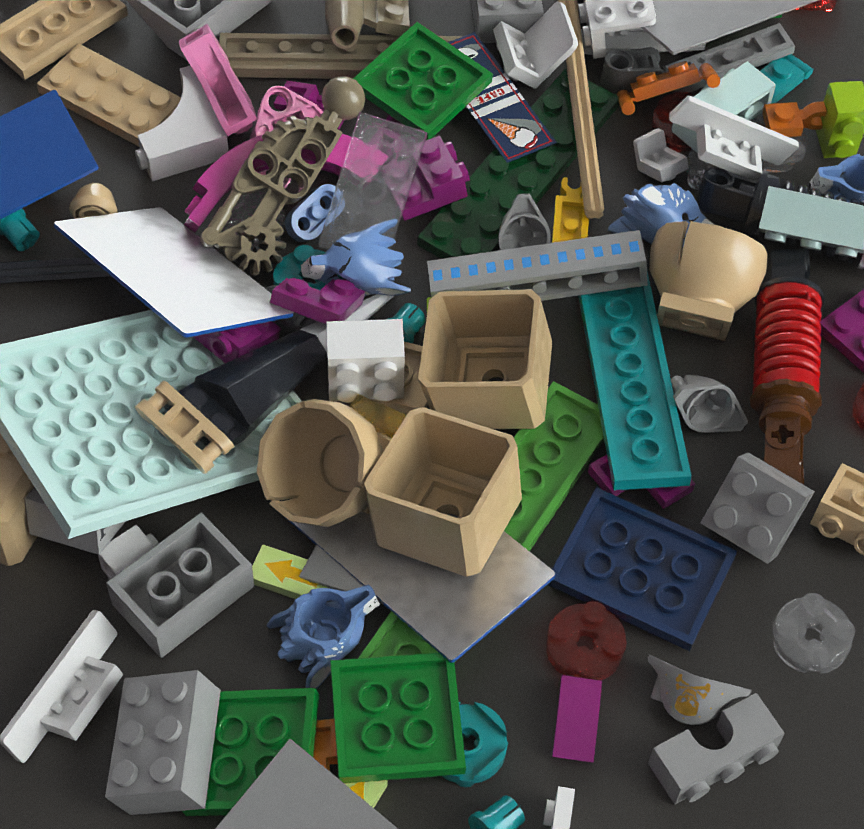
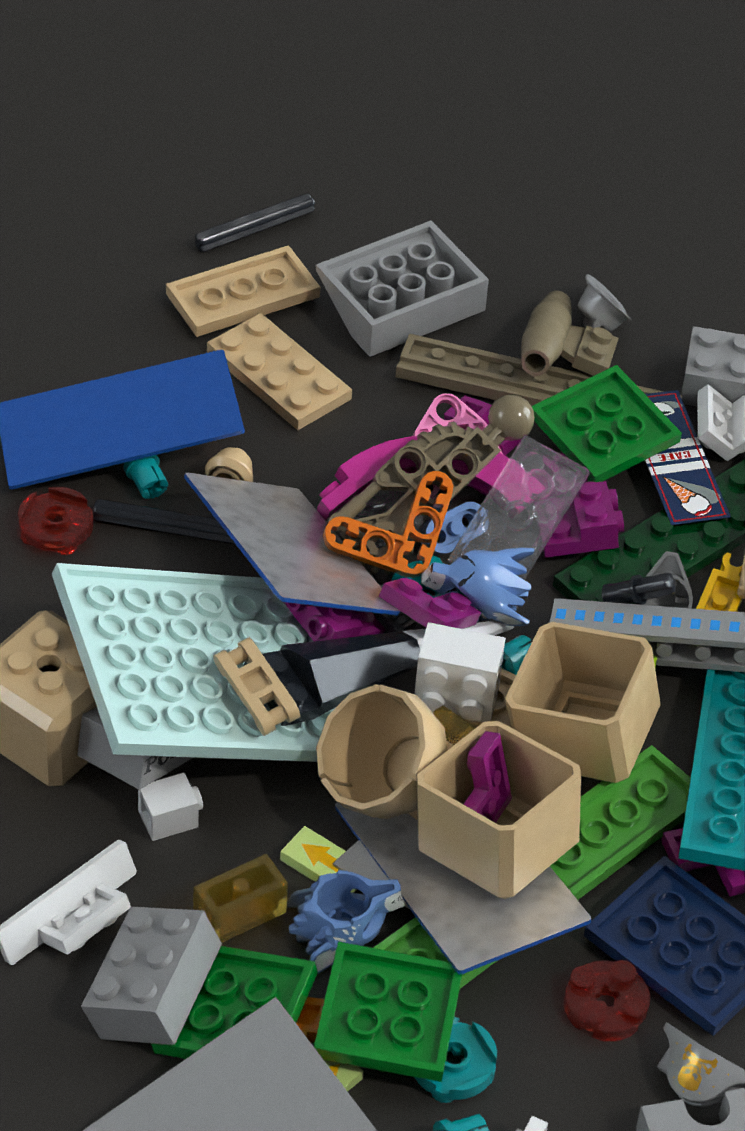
camera: 15 degrees right, 10 degrees down
(181, 584) = (209, 835): light grey brick -> none
(186, 138) = (341, 426): white arch -> none
(219, 81) = (392, 379): bright pink arch -> none
(225, 638) = (242, 897): none -> clear yellow brick
(273, 245) = (397, 544): none -> orange beam
(428, 466) = (489, 777): none -> magenta plate
(502, 235) = (639, 589): none -> black axle
(577, 718) = (573, 1067): magenta slope -> none

